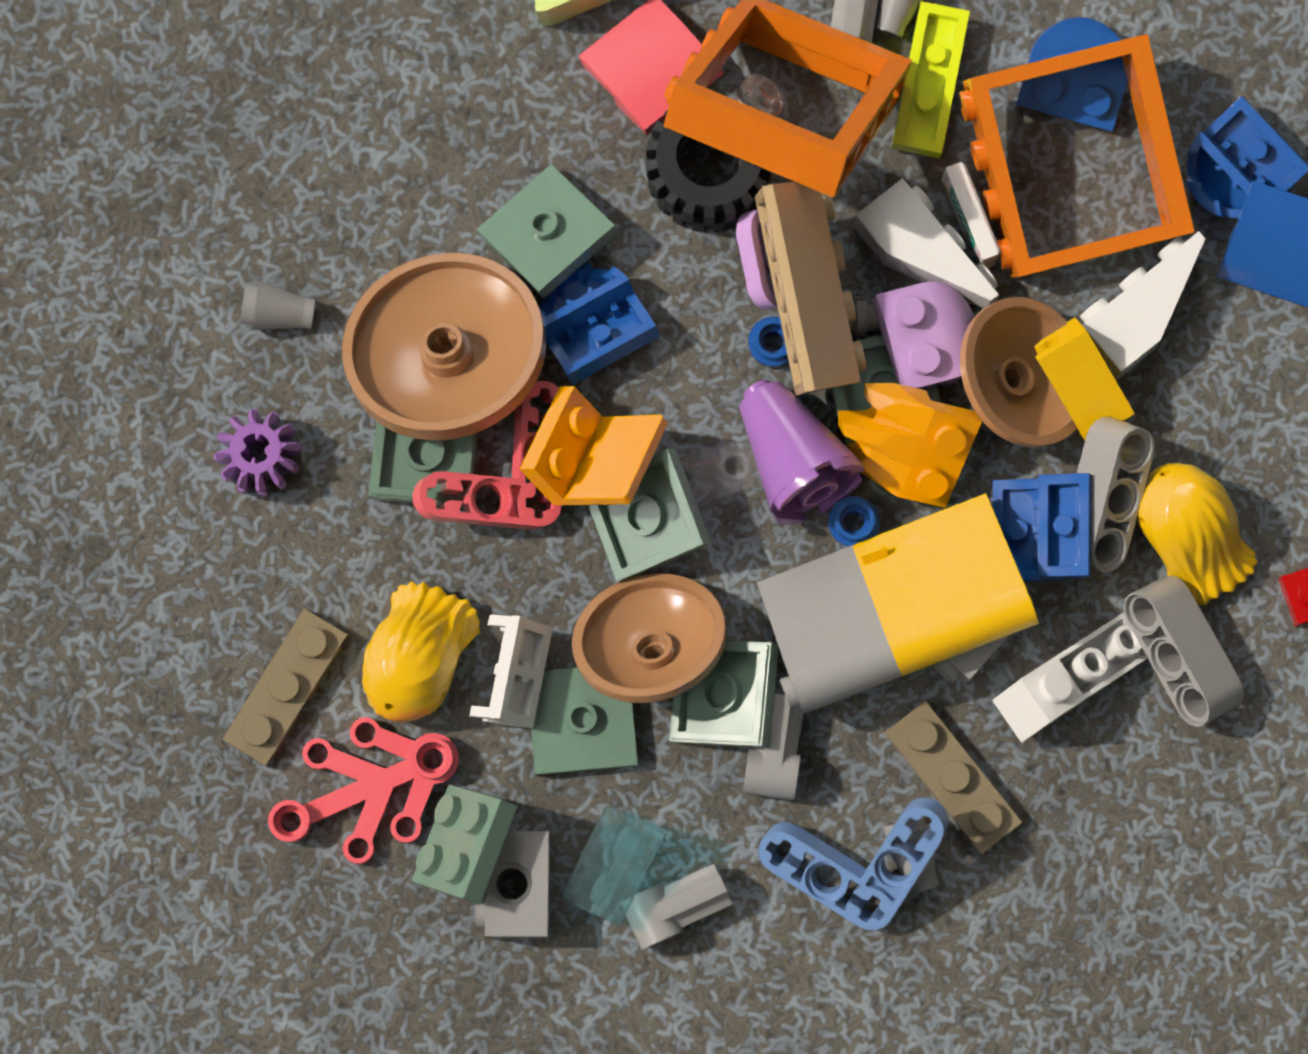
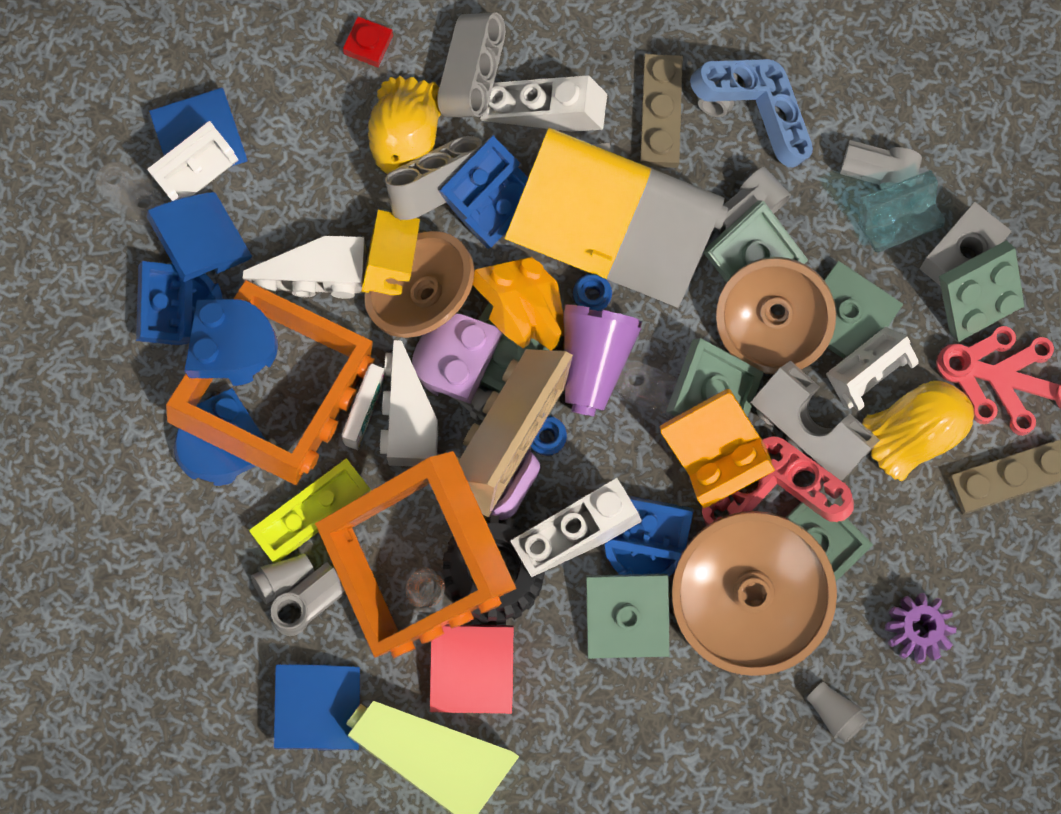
camera: 145 degrees left, 5 degrees down
(488, 556) = (786, 403): none -> light grey arch
(659, 252) = (577, 528): none -> white slope
(1146, 146) = (230, 341): none -> blue slope

